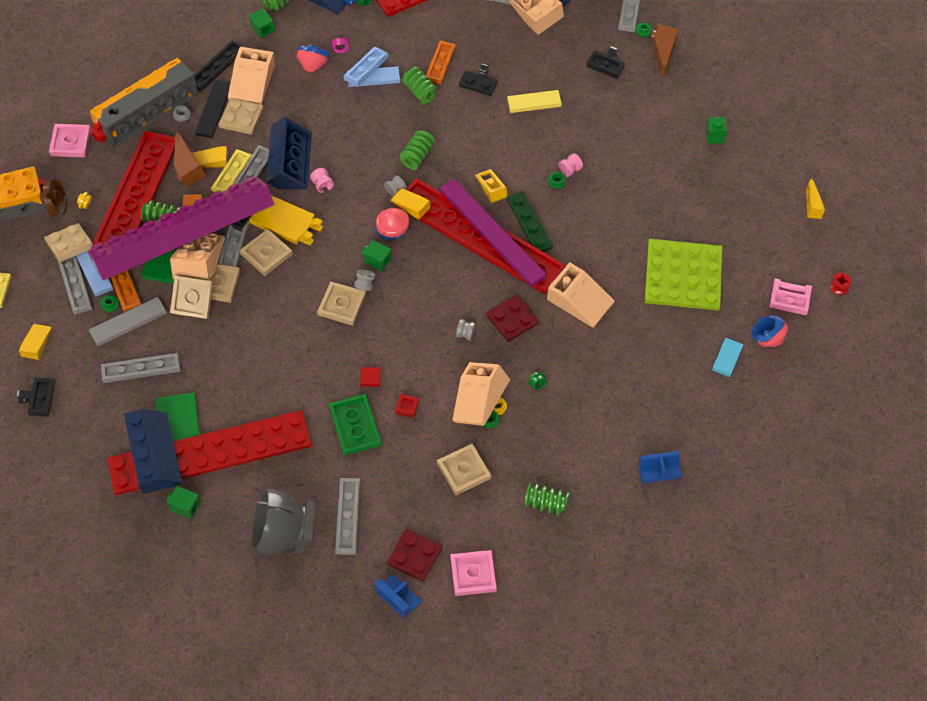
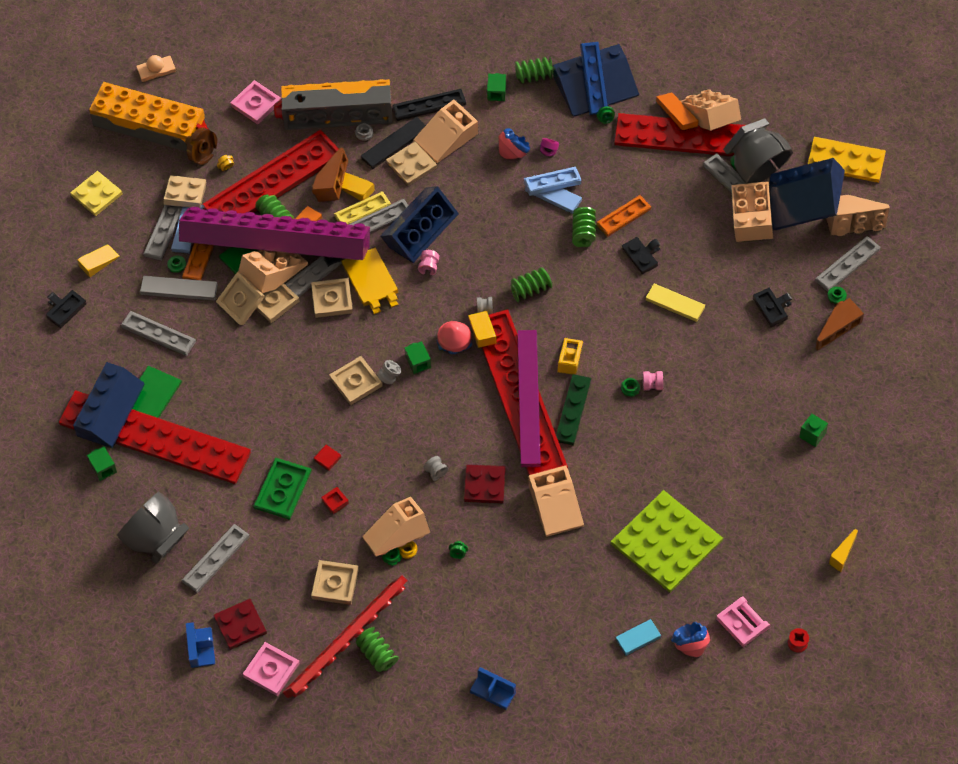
camera: 40 degrees right, 0 degrees up
(514, 507) = (352, 631): none -> red plate

